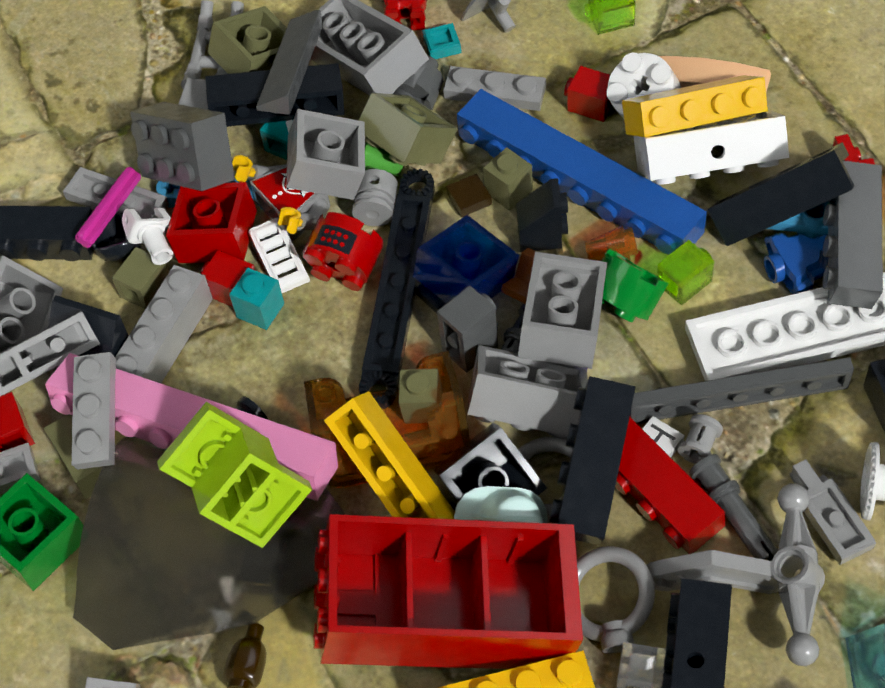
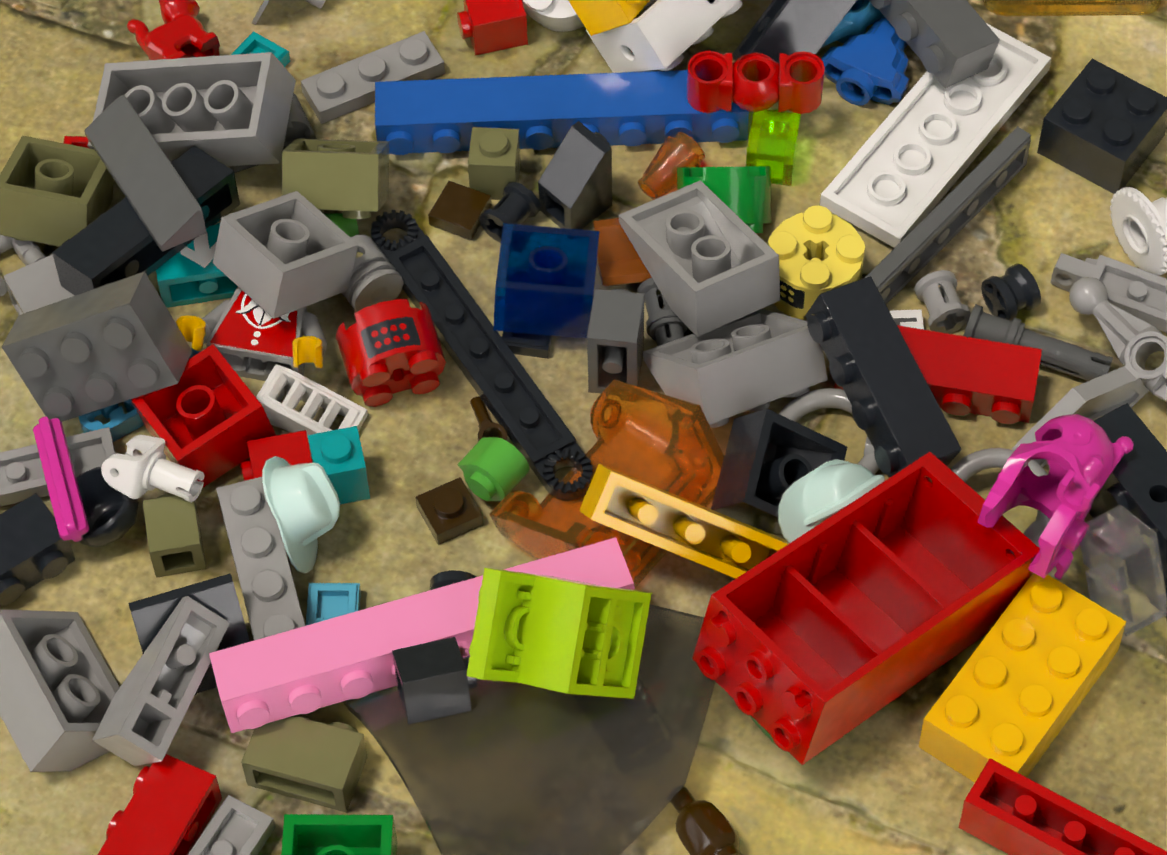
camera: 45 degrees left, 0 degrees up
(93, 411) = (316, 686): light grey plate -> none
(145, 449) = (433, 680): none -> black brick
(186, 376) = (331, 600): none -> medium azure tile
(201, 306) = (302, 505): none -> light aqua piece
(296, 365) = (449, 511): none -> dark brown plate
(334, 358) = (493, 468): none -> bright green plate
(360, 334) = (486, 427): none -> dark brown hand
(419, 394) = (630, 442): olive brick -> none
(493, 213) = (513, 208): none -> black bush
(624, 607) = (1079, 465): none -> dark pink helmet
(639, 355) = (814, 257): none -> light yellow brick
(696, 222) = (755, 82): none -> red piece
(750, 463) = (1011, 292): none -> black wheel

